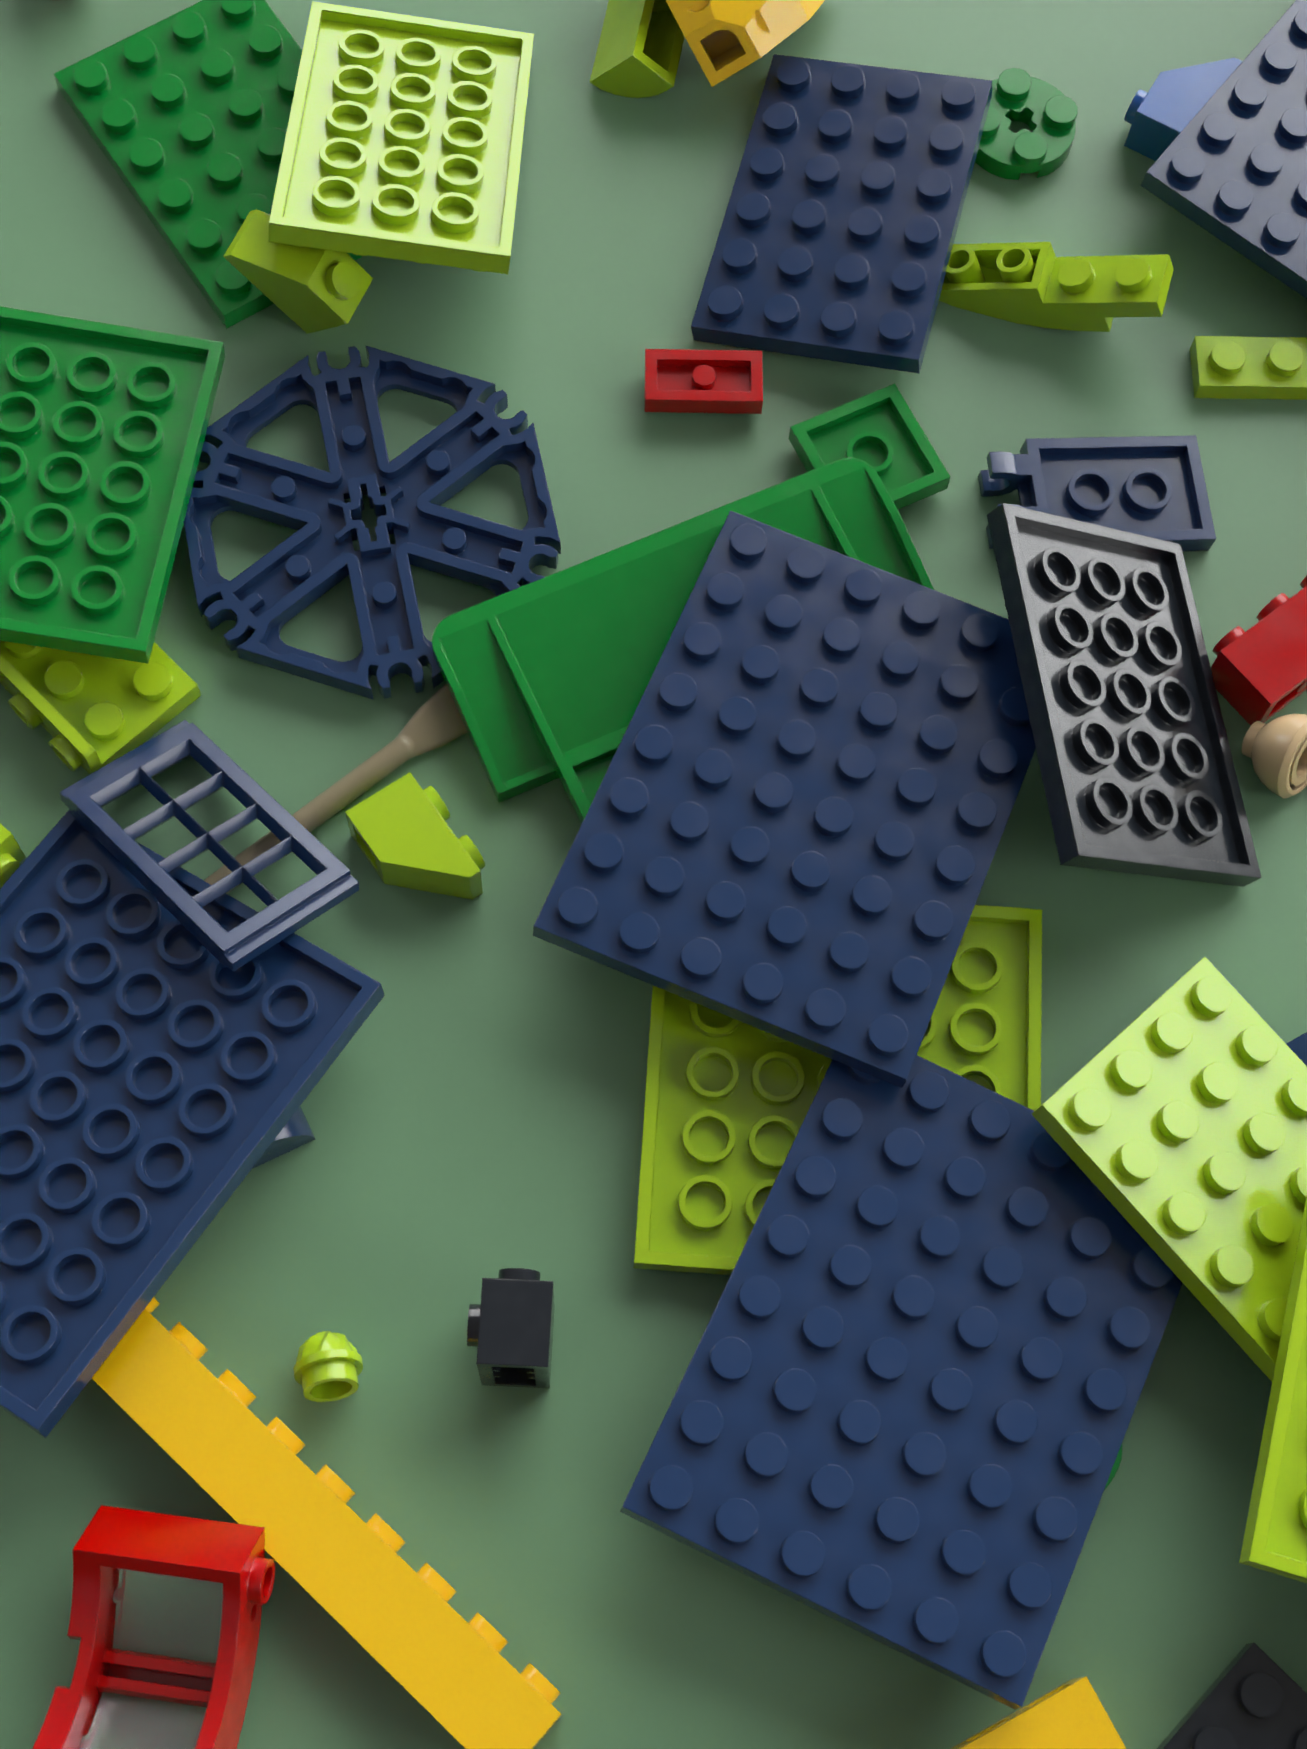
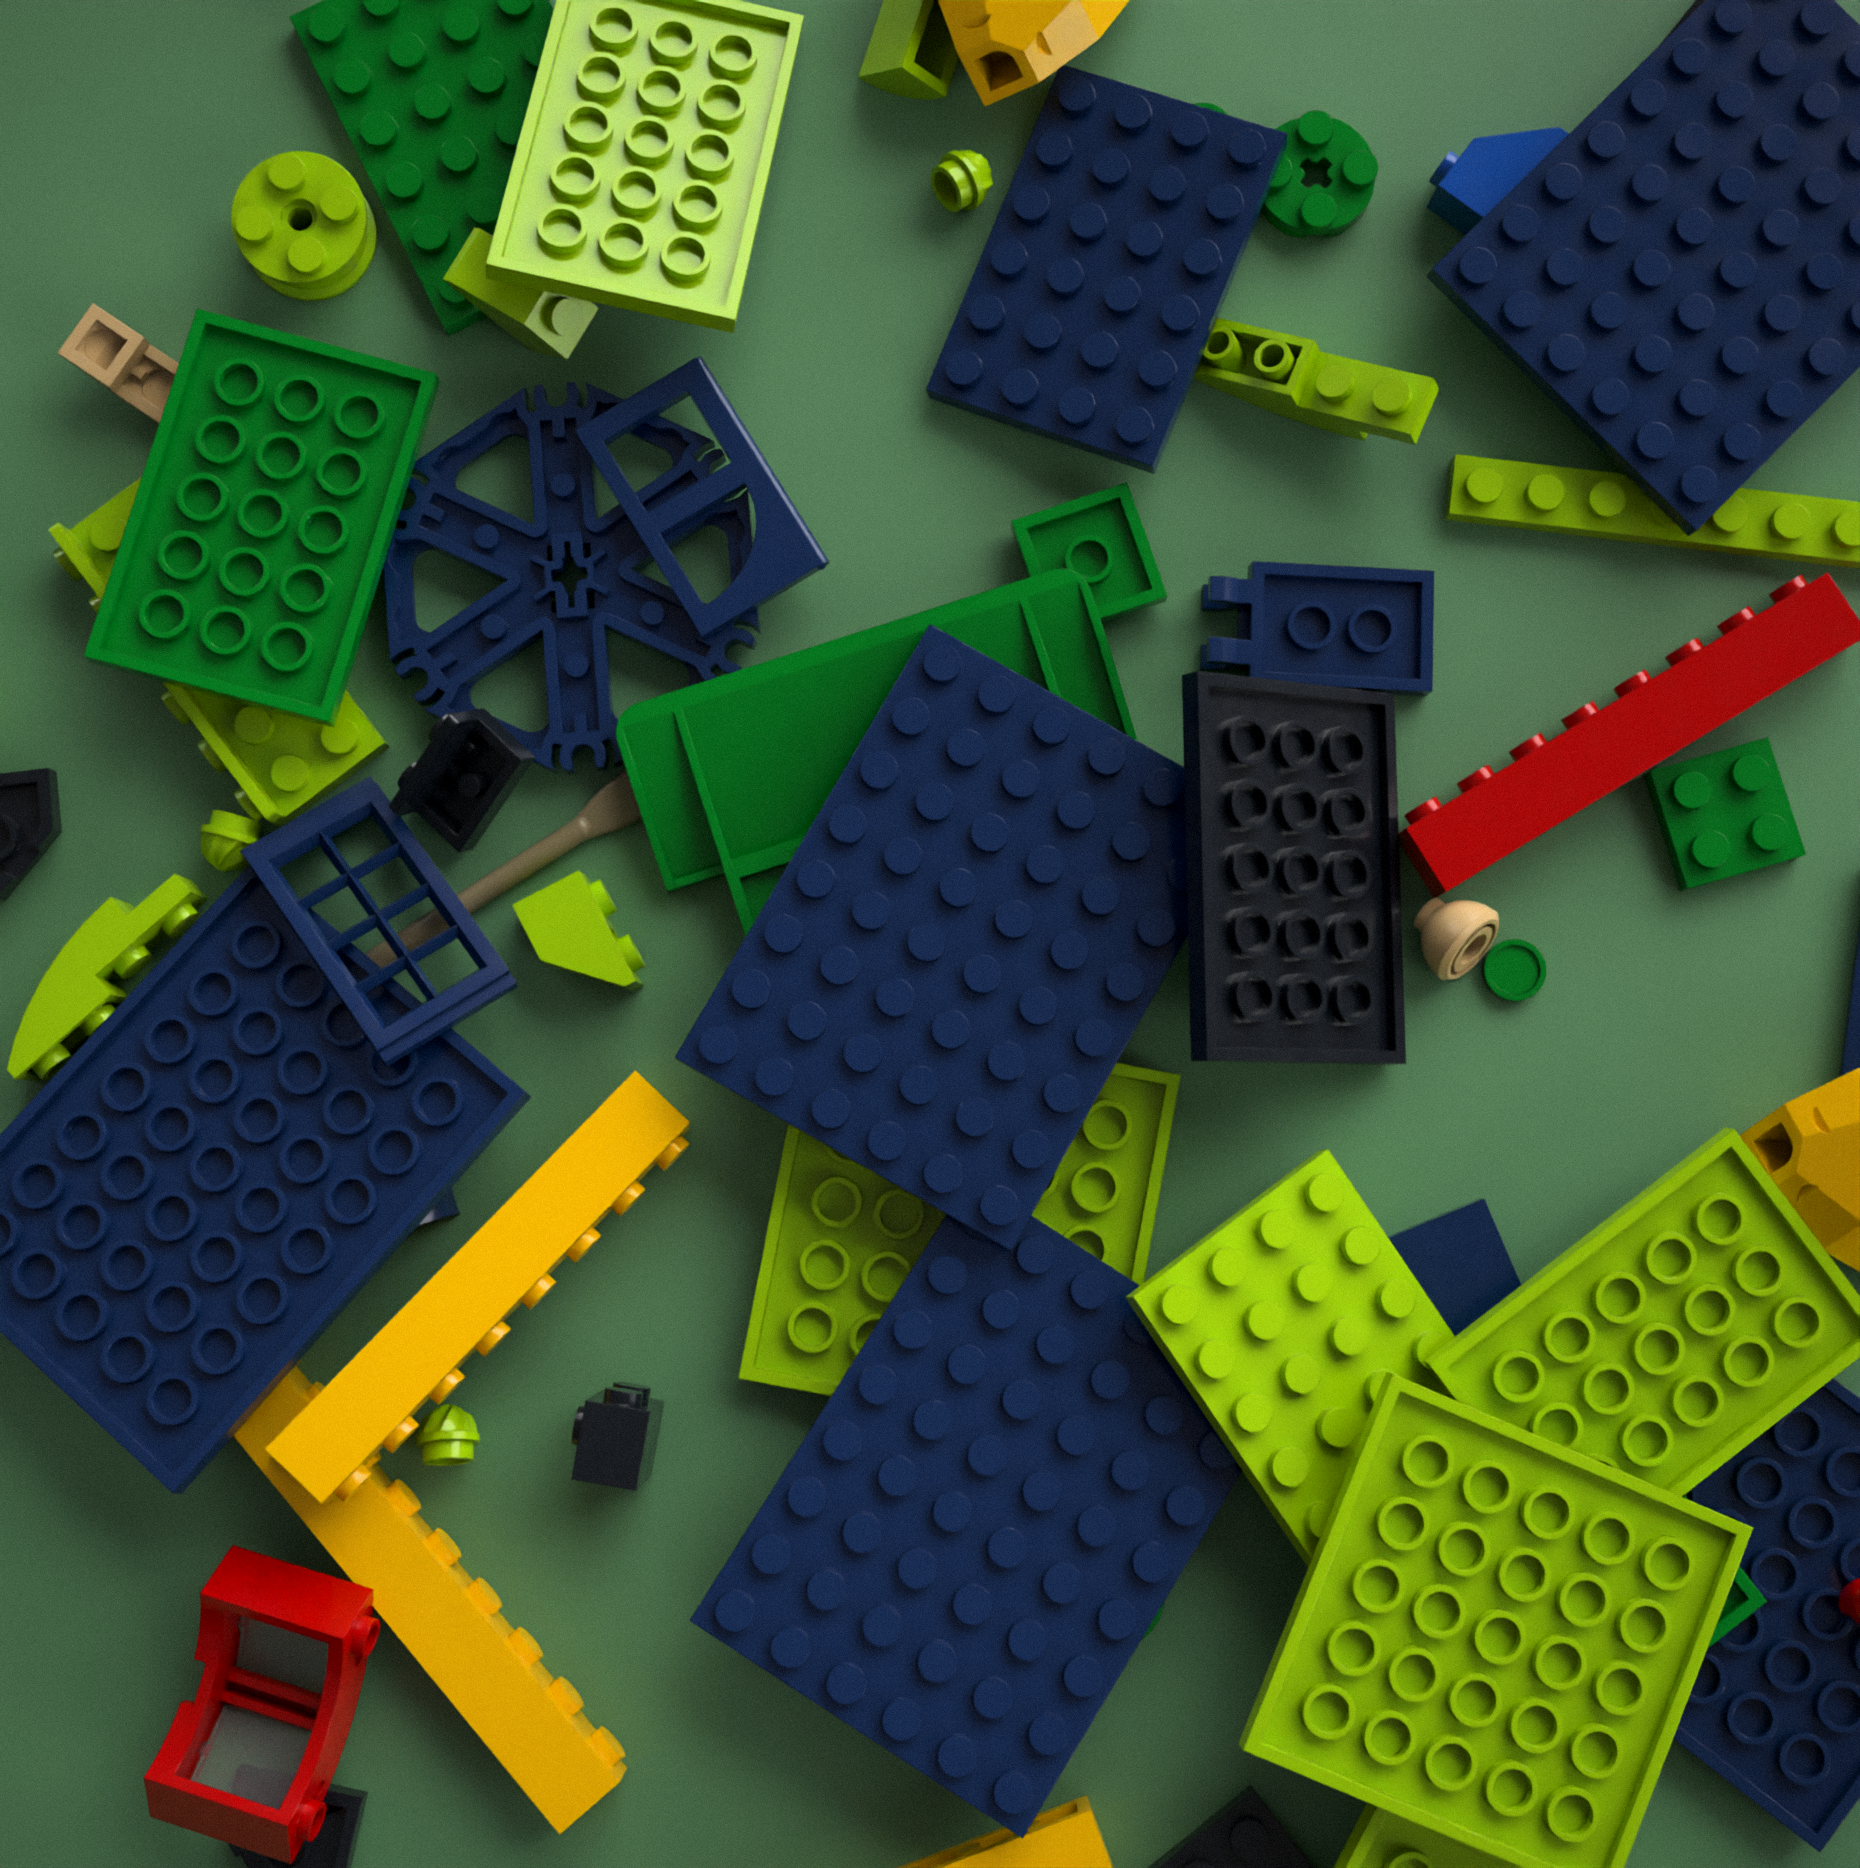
camera: 15 degrees right, 15 degrees up
(41, 787) = (225, 838): none -> lime plate
(82, 239) = (297, 193): none -> lime wheel
(281, 701) = (462, 776): none -> black bracket
(345, 1199) = (479, 1289): none -> yellow brick
(574, 467) = (783, 544): none -> dark blue window
(697, 152) = (961, 180): none -> lime plate
(703, 381) = (929, 455): red plate -> none

